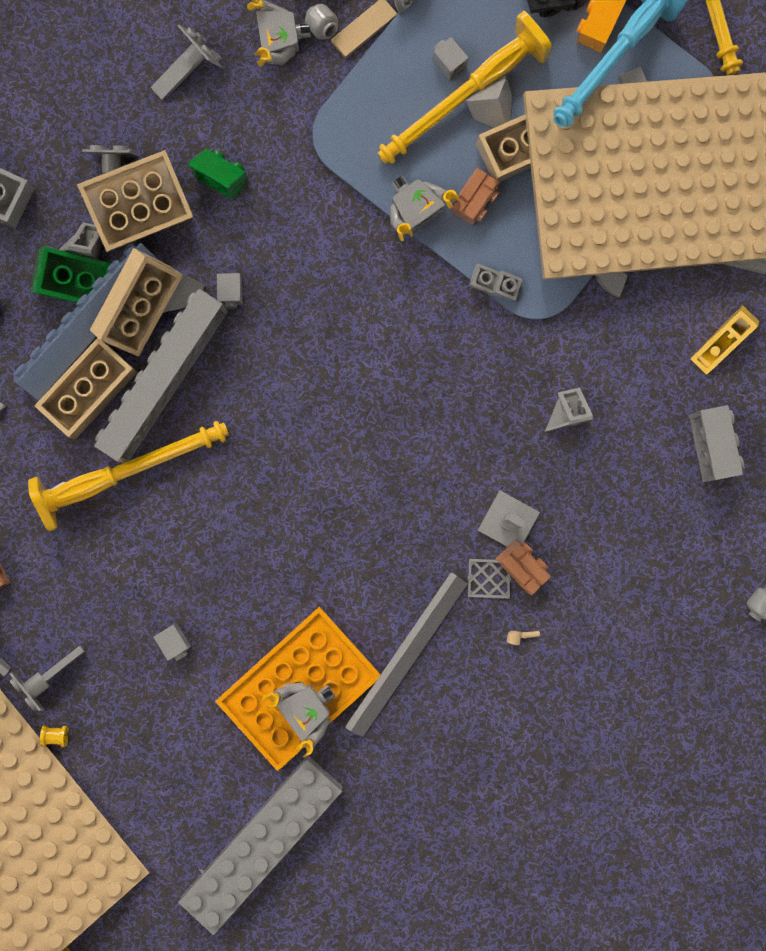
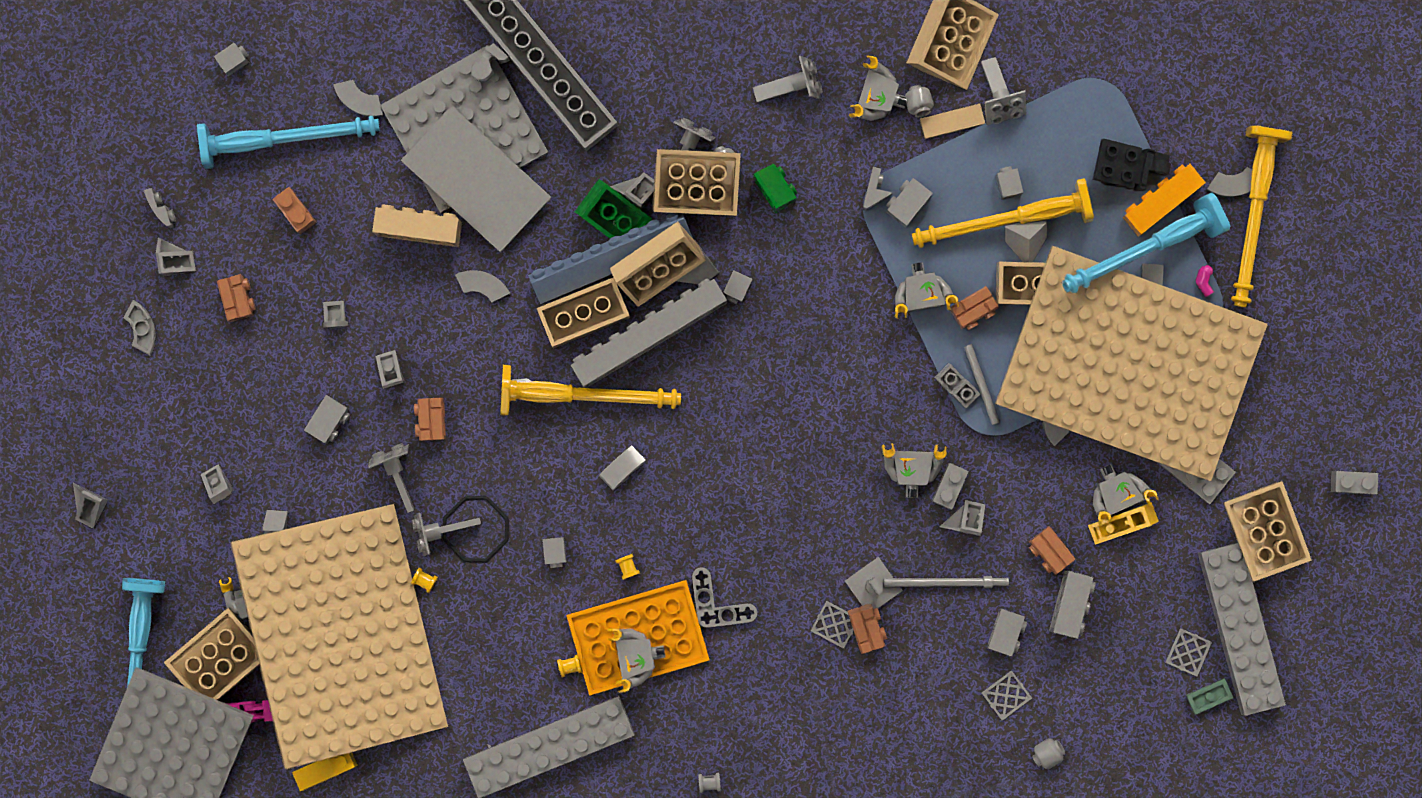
camera: 40 degrees right, 0 degrees up
(113, 671) = (483, 560): none -> black piece
(200, 525) = (622, 467): none -> light grey slope
(242, 751) = (569, 665): none -> yellow bush
(253, 621) = (627, 566): none -> yellow bush
(321, 131) = (874, 195): none -> light grey slope
(356, 621) = (710, 606): none -> light grey beam
(359, 124) = (909, 202): none -> light grey brick
(406, 655) = (738, 653): light grey tile -> none
(441, 799) = (709, 782): none -> light grey bush
(491, 384) = (913, 467): none -> light grey torso
(514, 636) = (832, 682): tan hand -> none
(518, 269) = (981, 384): none -> light grey bar
(537, 385) = (950, 486): none -> light grey brick
(618, 463) = (986, 582): none -> light grey bar
(663, 503) = (1006, 632): none -> light grey brick
(668, 401) = (1051, 550): none -> nougat brick
(685, 64) = (1203, 278): none -> dark pink arm
(701, 549) = (1018, 686): none -> light grey window
(707, 311) = (1118, 493): none -> light grey torso

